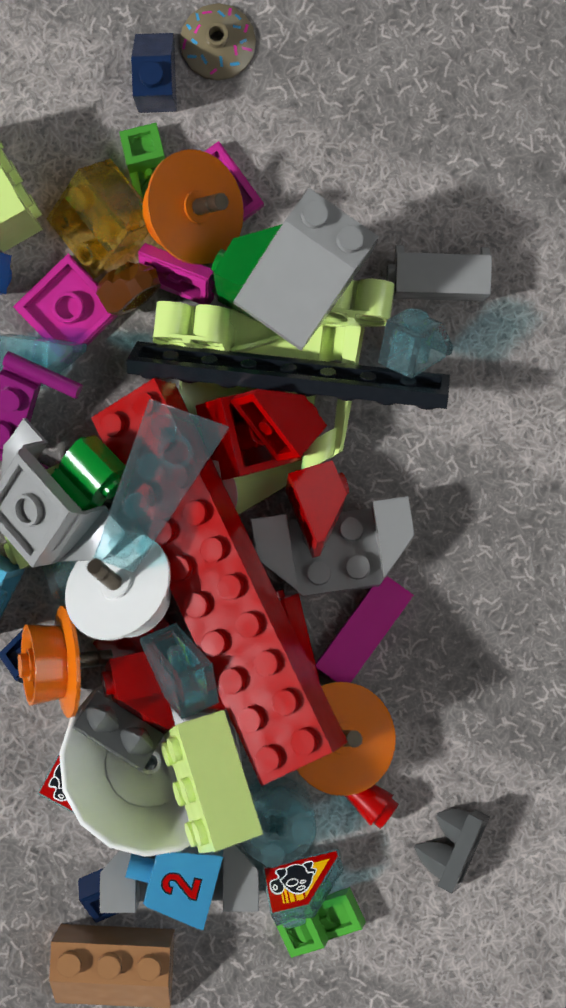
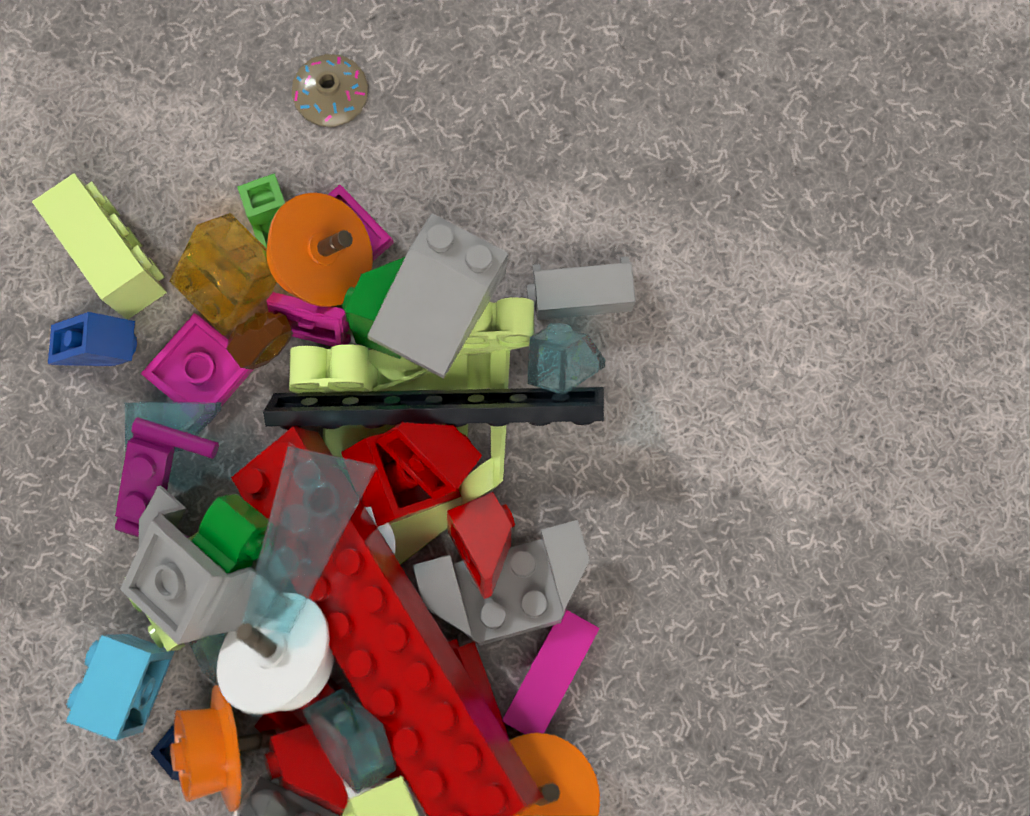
camera: 10 degrees left, 10 degrees down
(154, 73) = (268, 126): dark blue slope -> none

